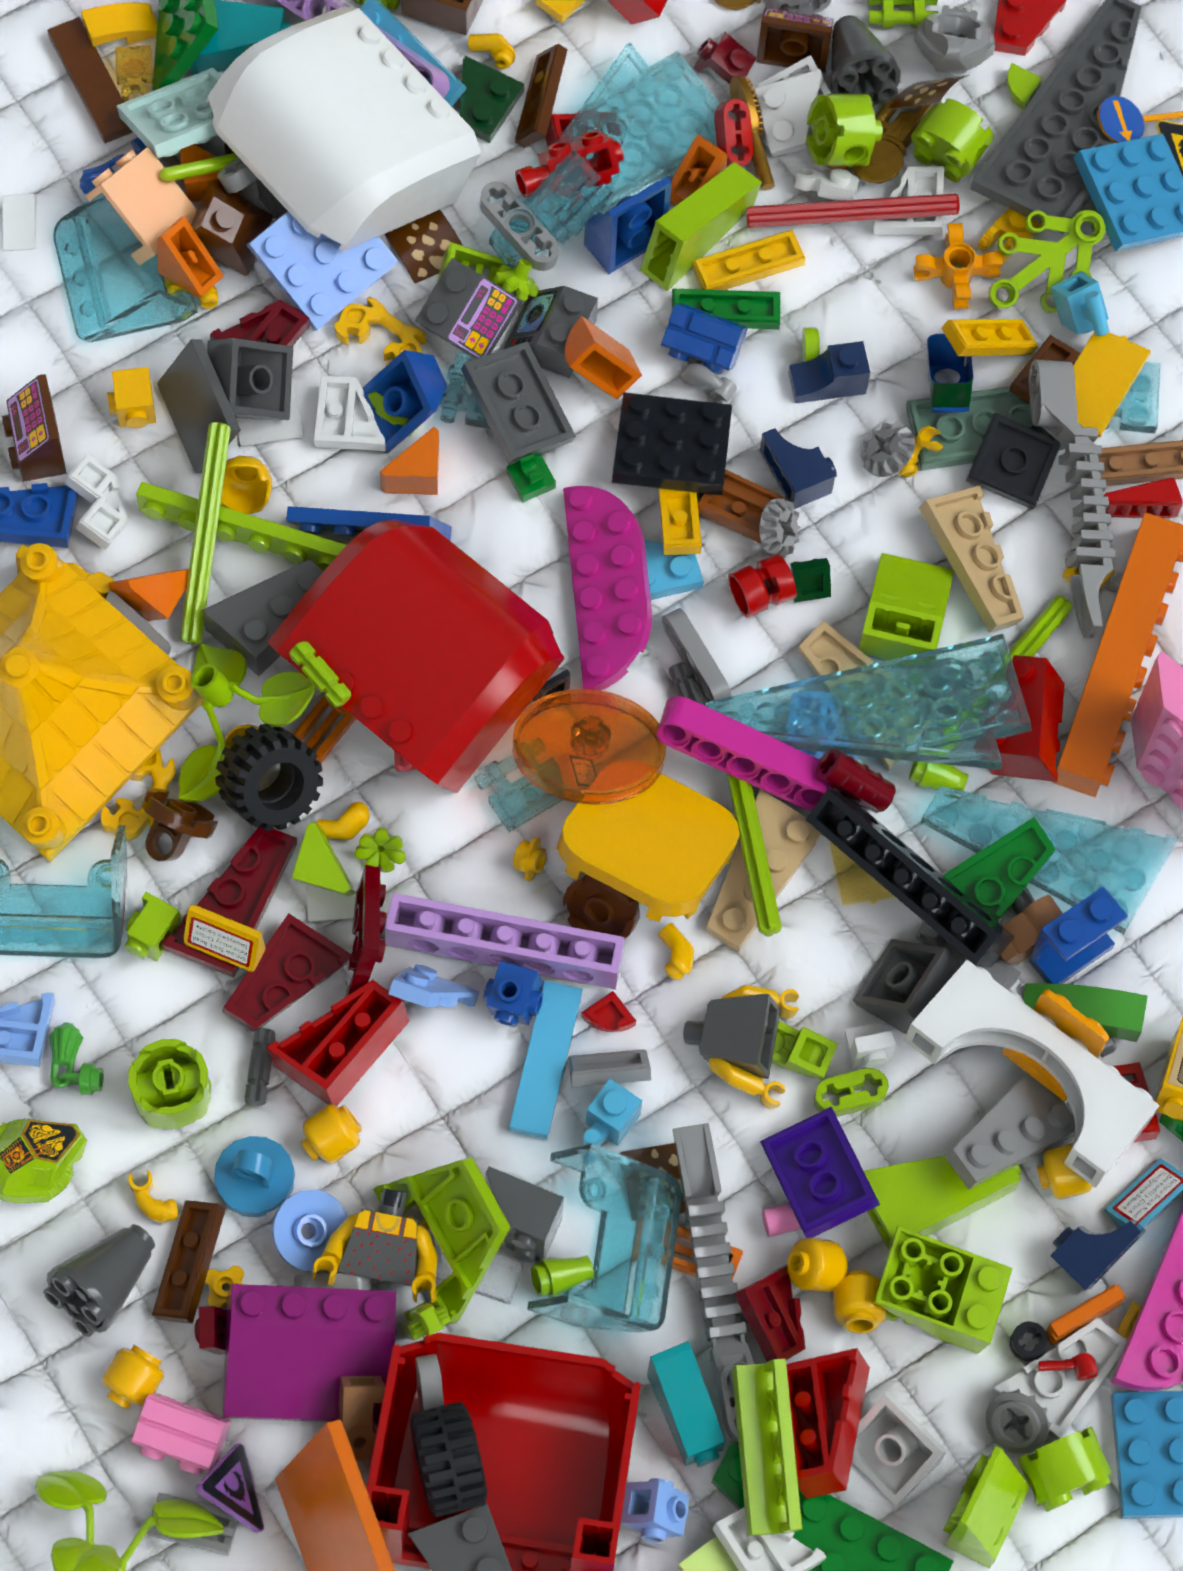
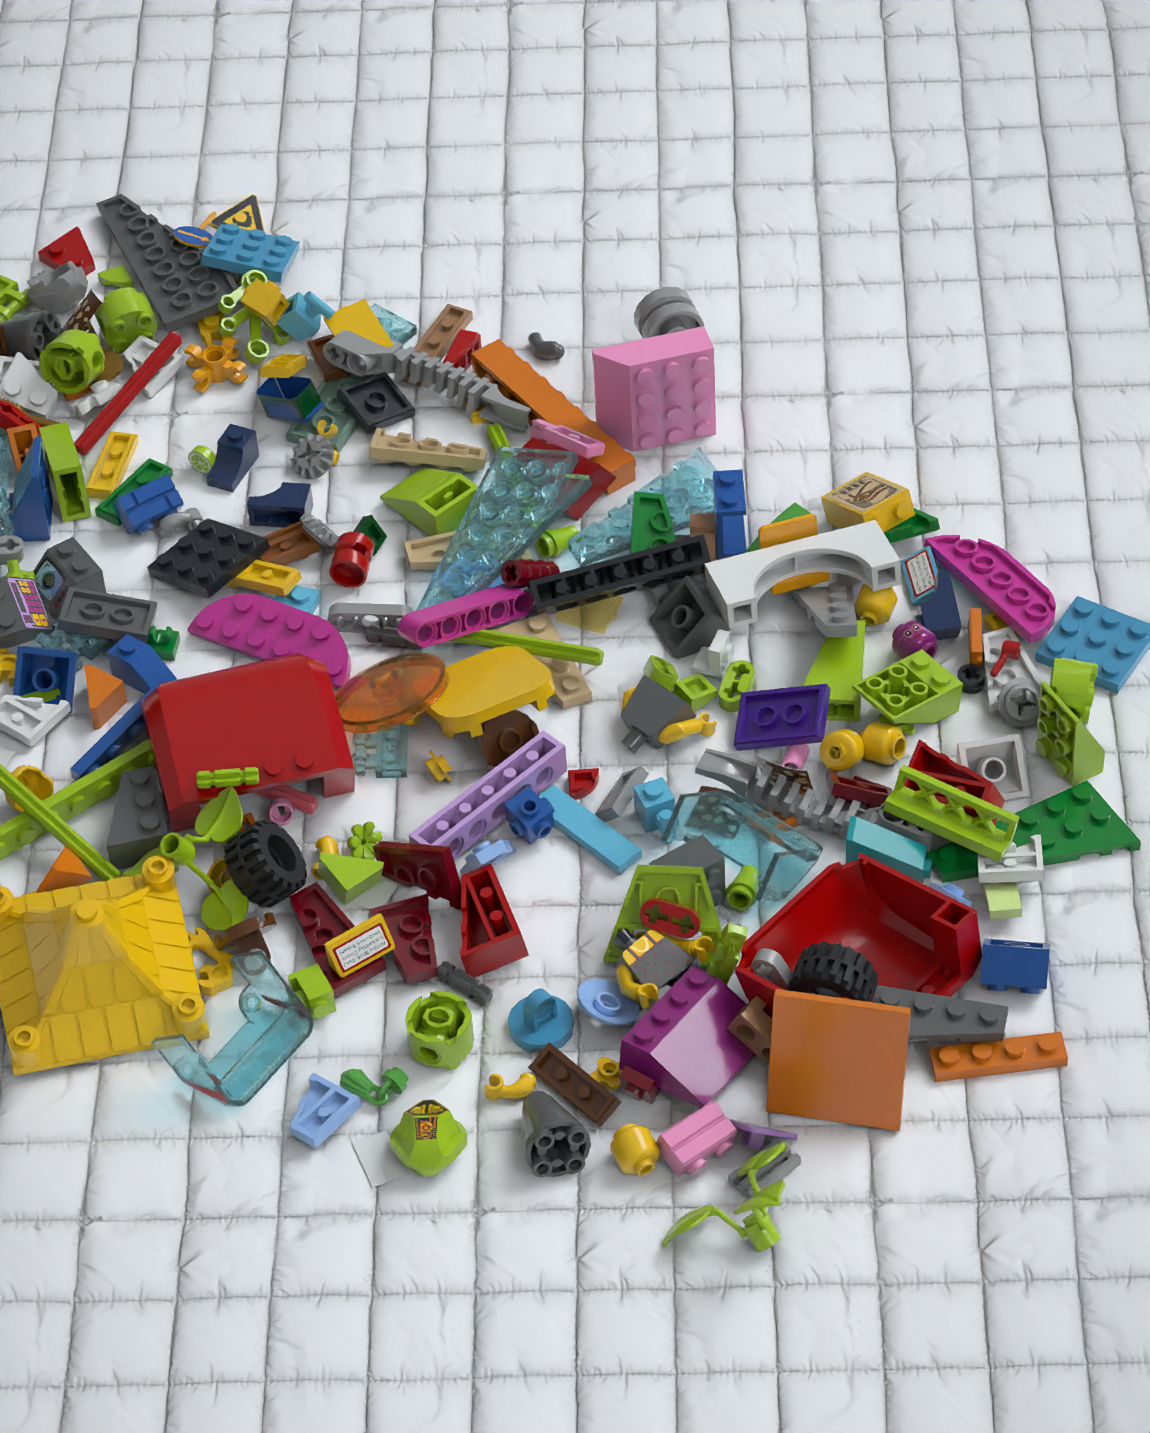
camera: 50 degrees left, 20 degrees down
(331, 1133) = (547, 961): yellow head -> none
(372, 744) = (274, 814): none -> bright pink hinge
(438, 1231) = (667, 925): none -> red beam
(477, 481) = (138, 664): none -> blue slope
(600, 358) = (117, 556): orange brick -> none
(681, 952) = (568, 723): yellow arm -> none
(733, 1218) = (792, 775): none -> reddish brown sticker
(802, 998) = (661, 672): none -> lime beam
(1031, 1250) = (911, 638): none -> magenta head
(1057, 258) = (265, 301): none -> yellow brick
(1071, 697) = (567, 439): none -> bright pink hinge

